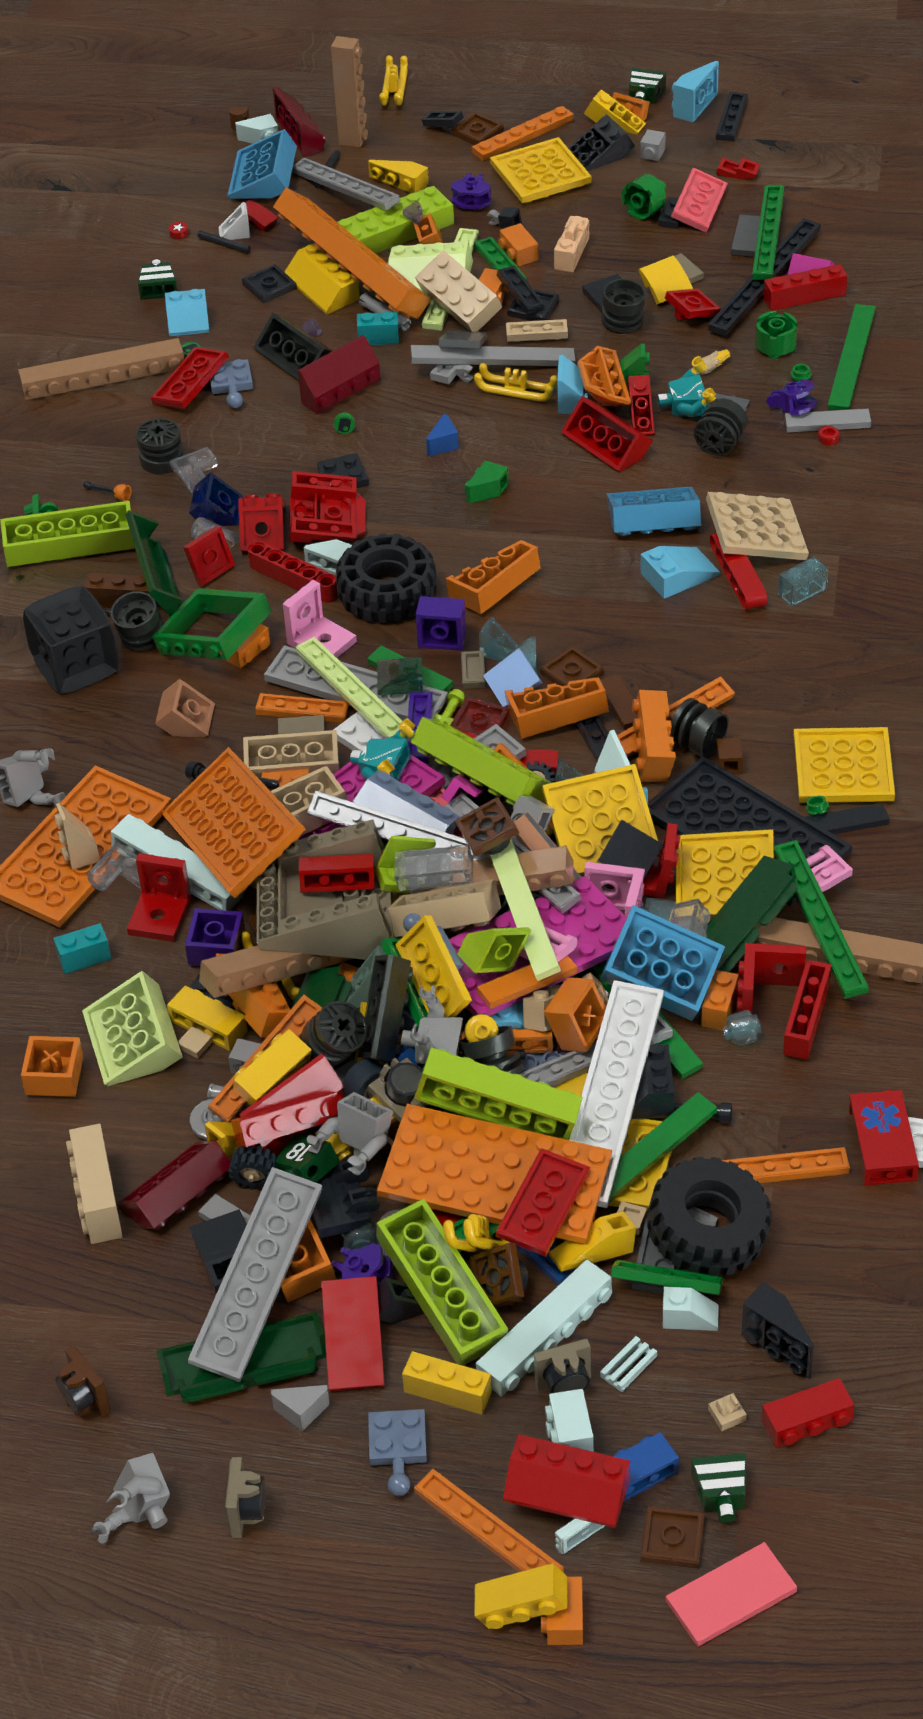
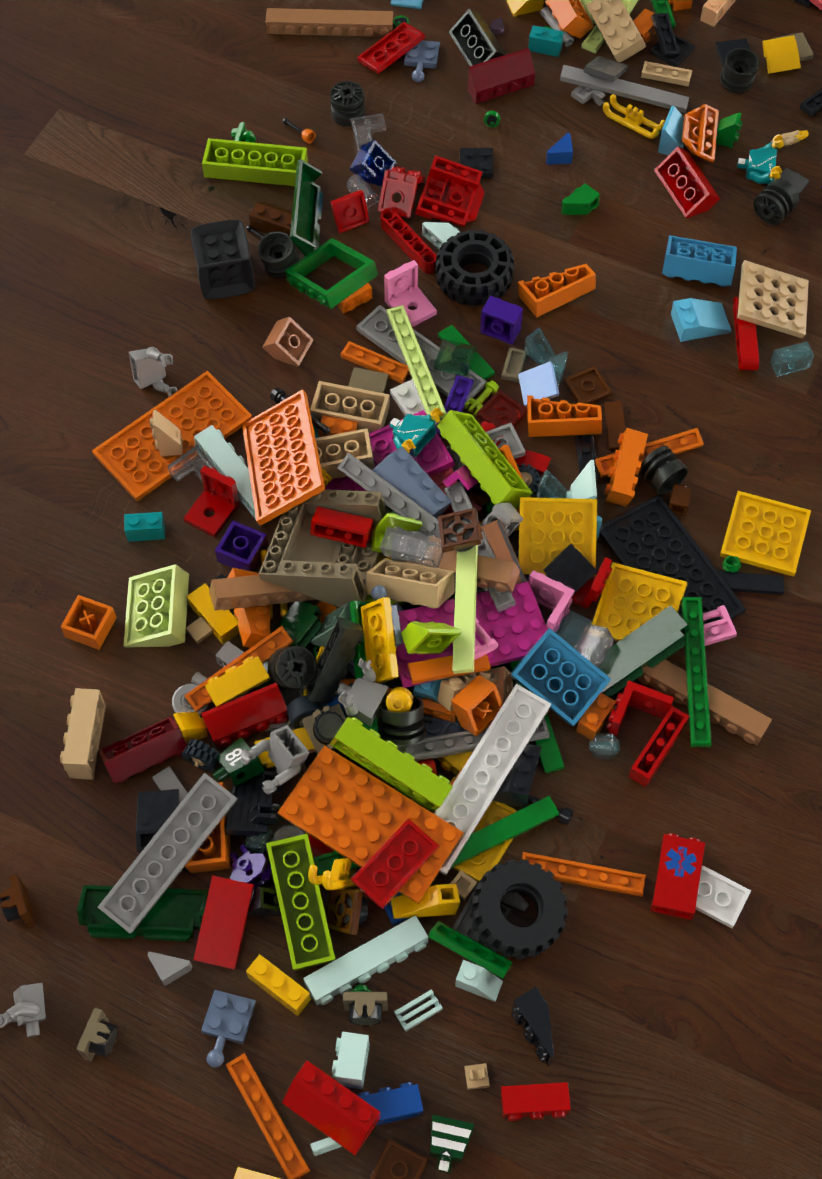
camera: 15 degrees right, 15 degrees up
(285, 1119) = (233, 727): brick -> none
(641, 404) = (722, 164): red slope -> none
(691, 304) = (794, 81): red hinge -> none

